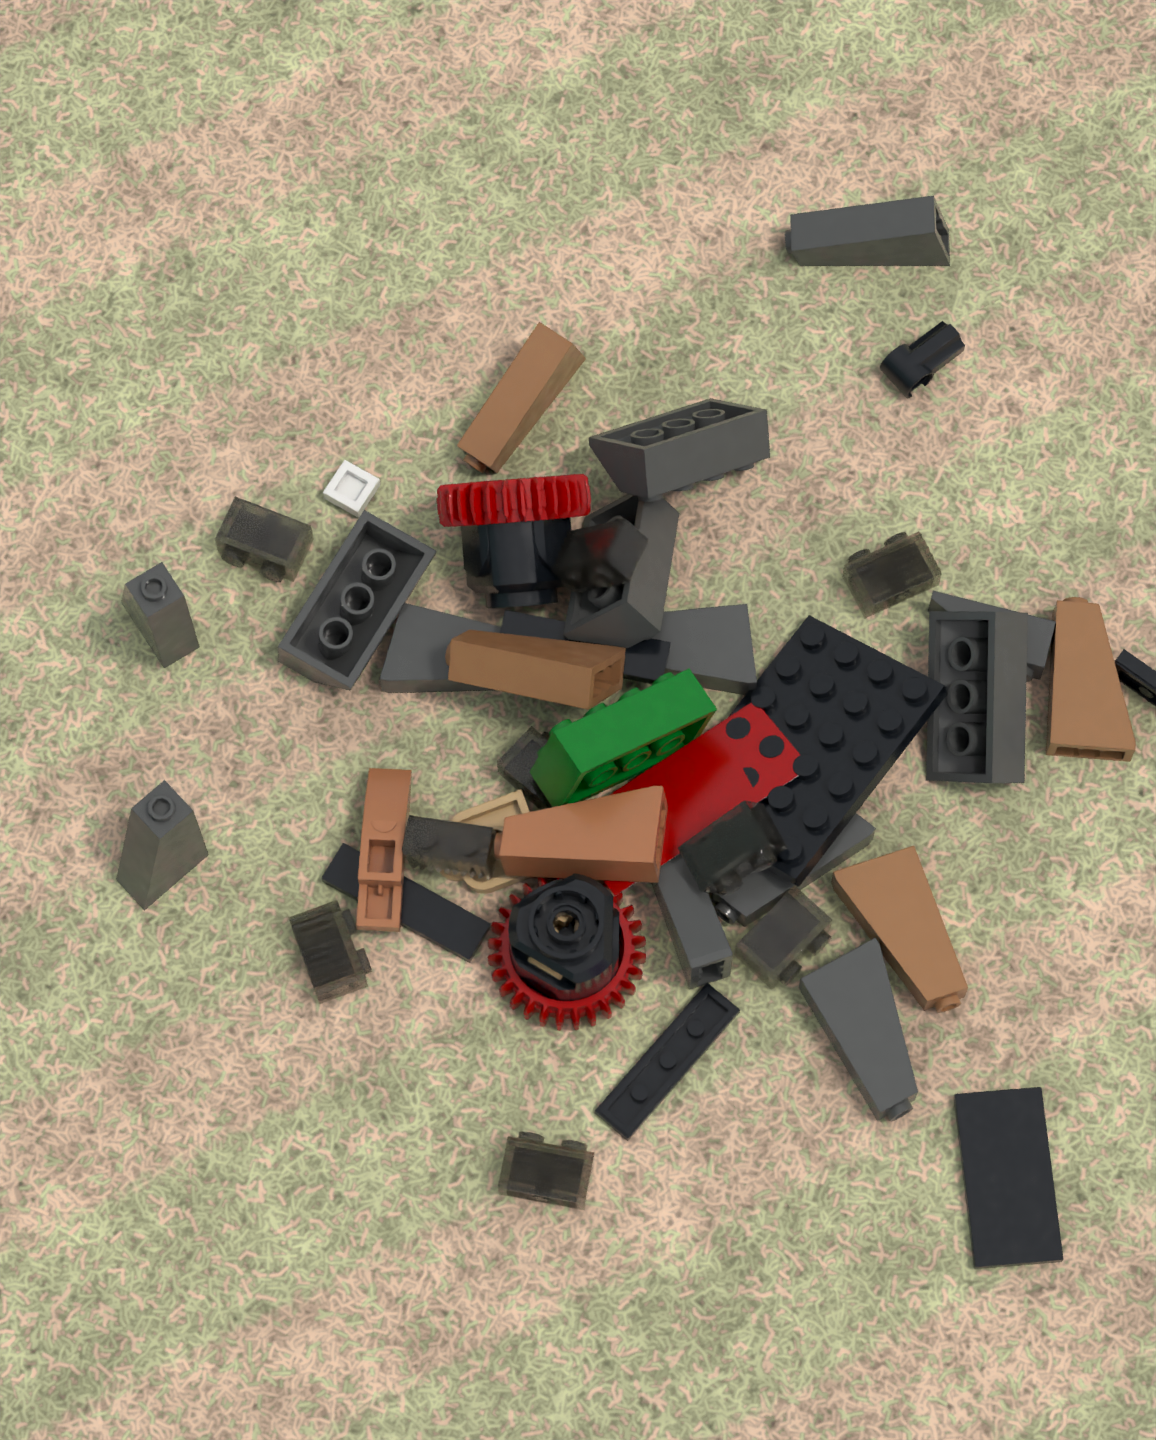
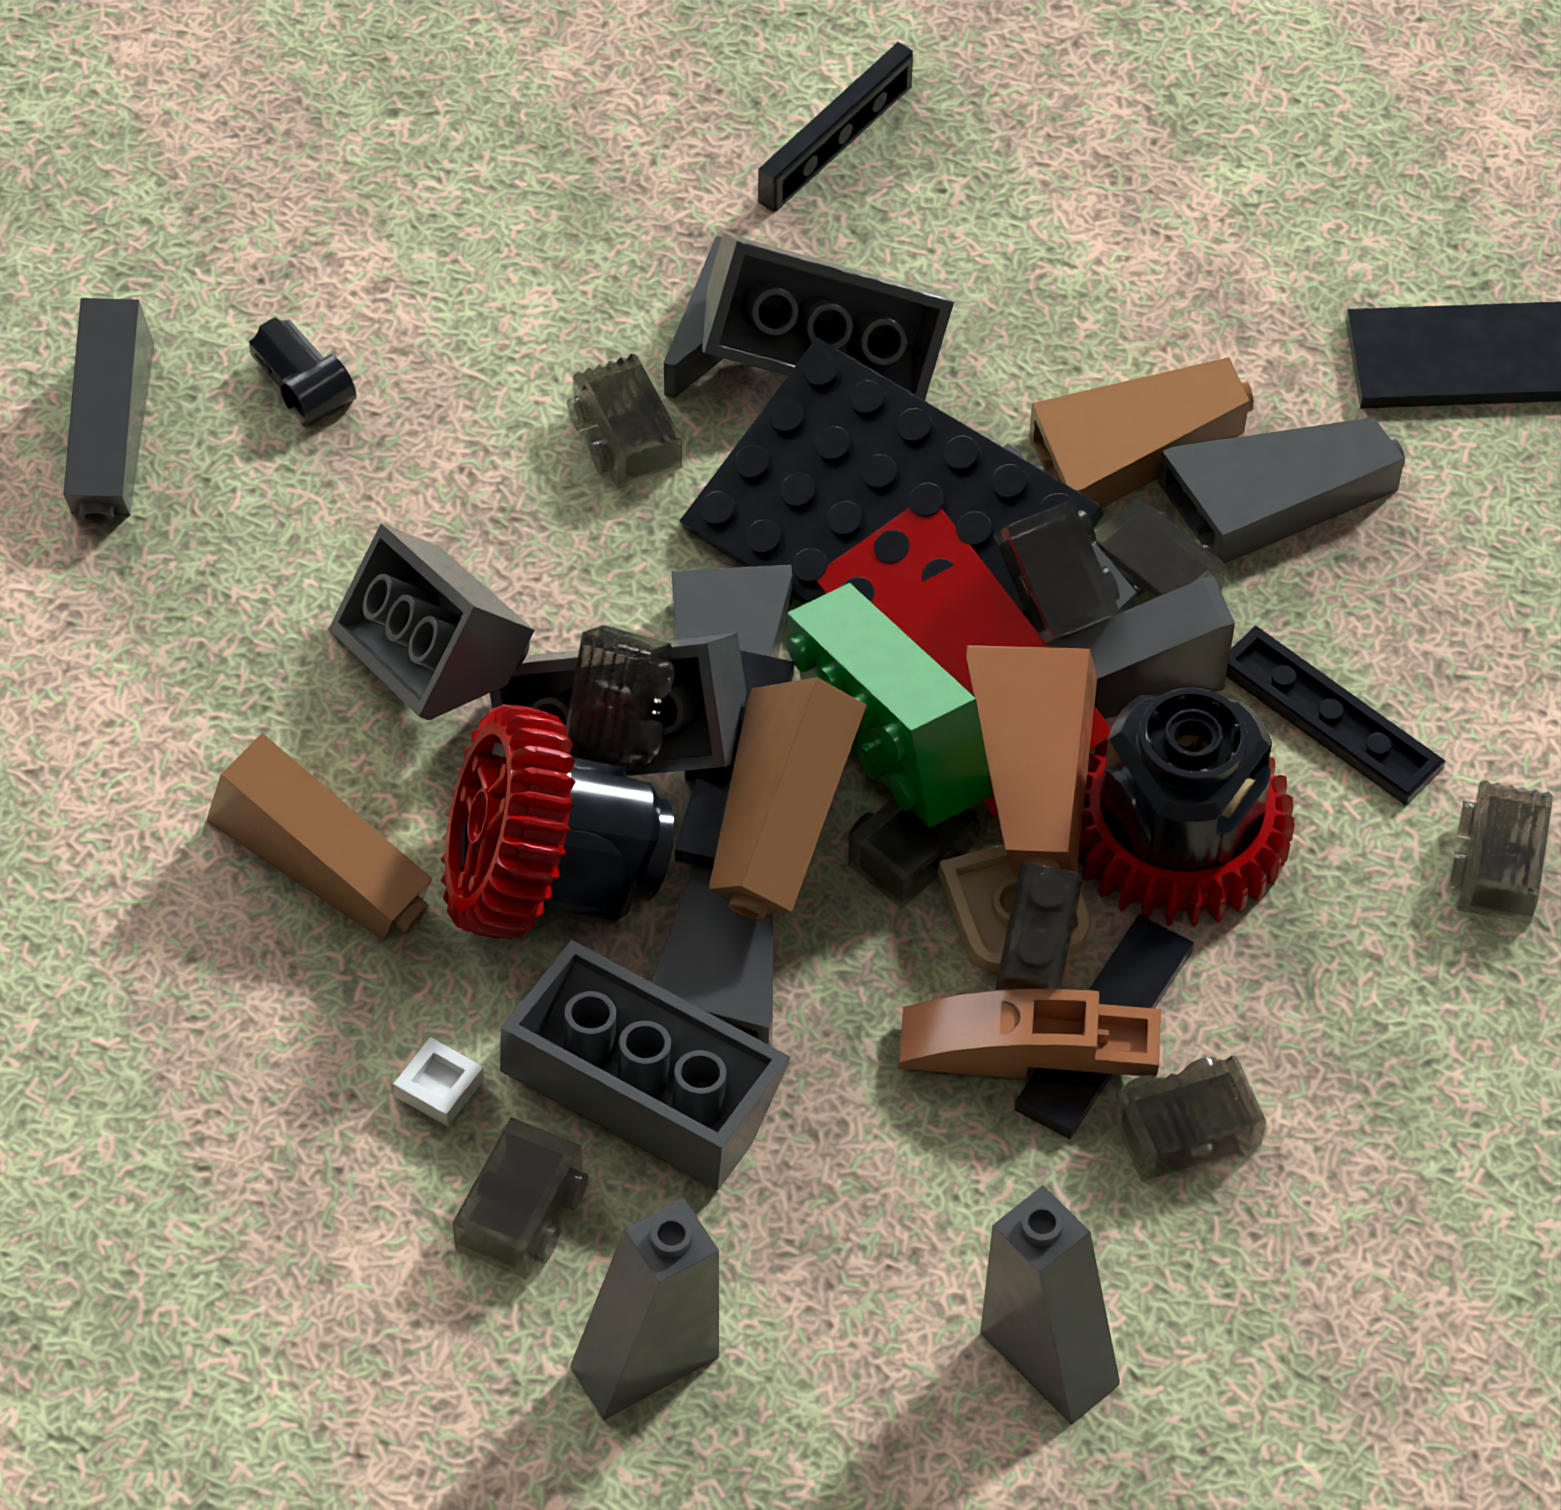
camera: 90 degrees left, 15 degrees down
(1085, 693) = (825, 216): medium nougat slope -> none

